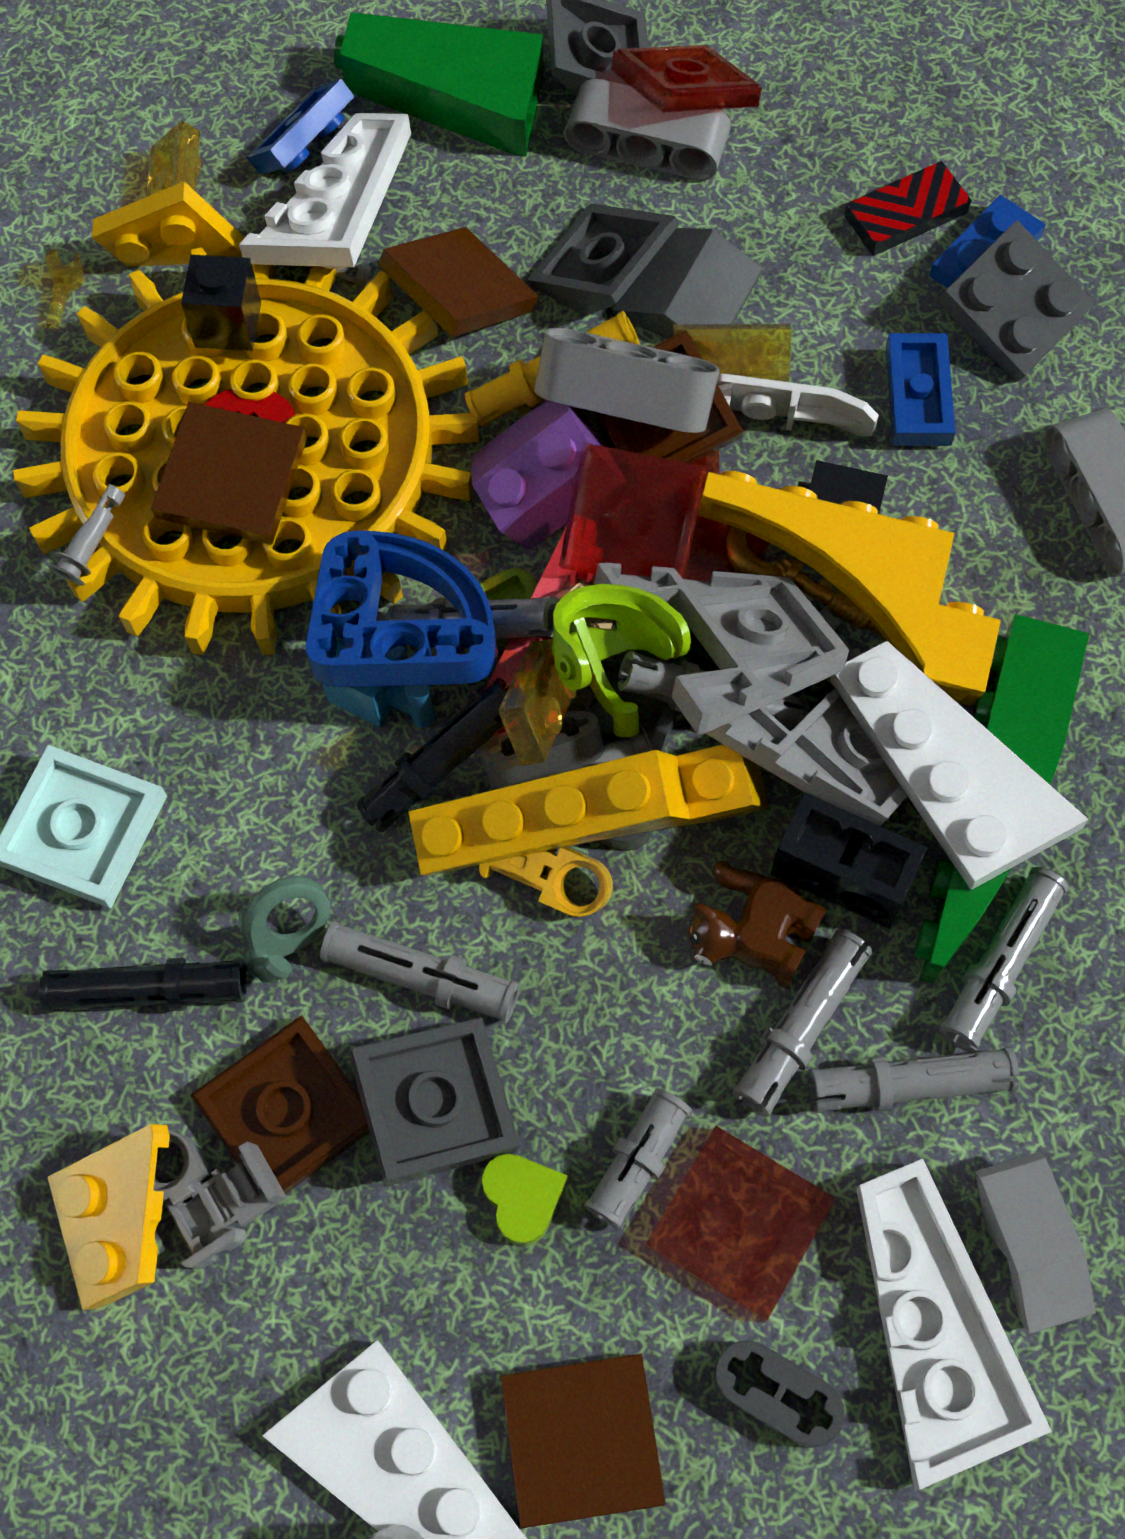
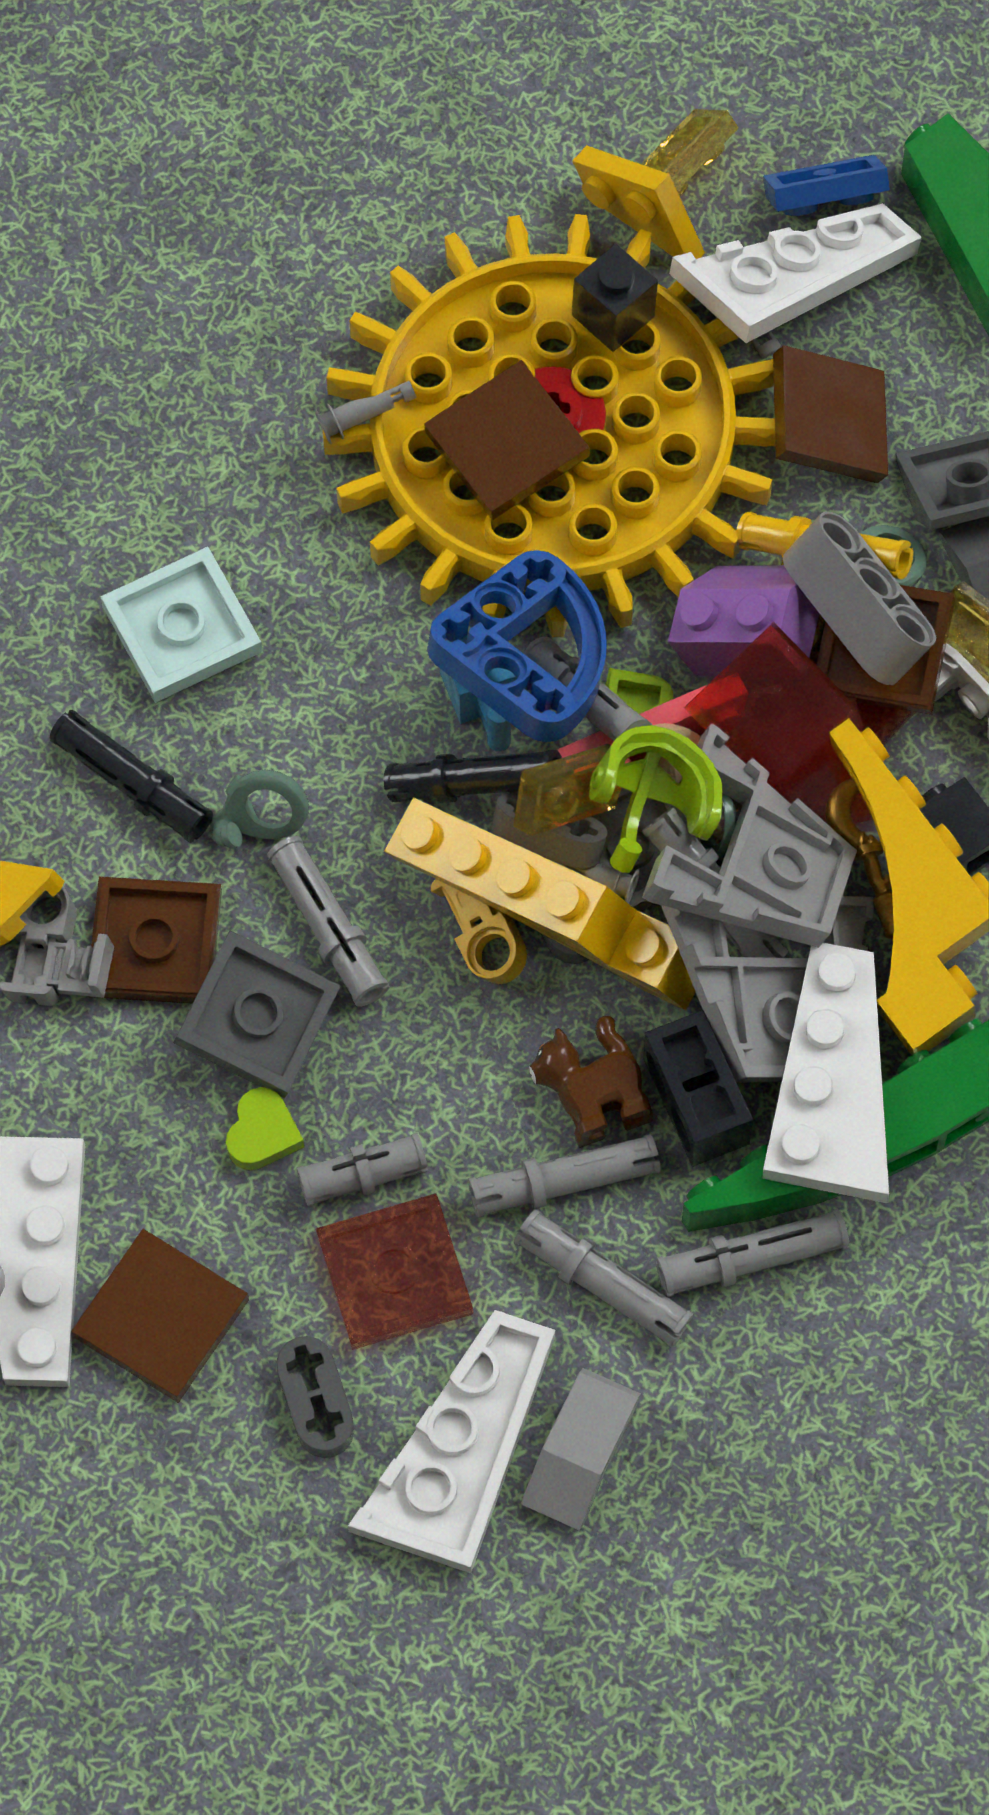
camera: 40 degrees right, 0 degrees up
(64, 281) = (528, 178): clear yellow hand -> none

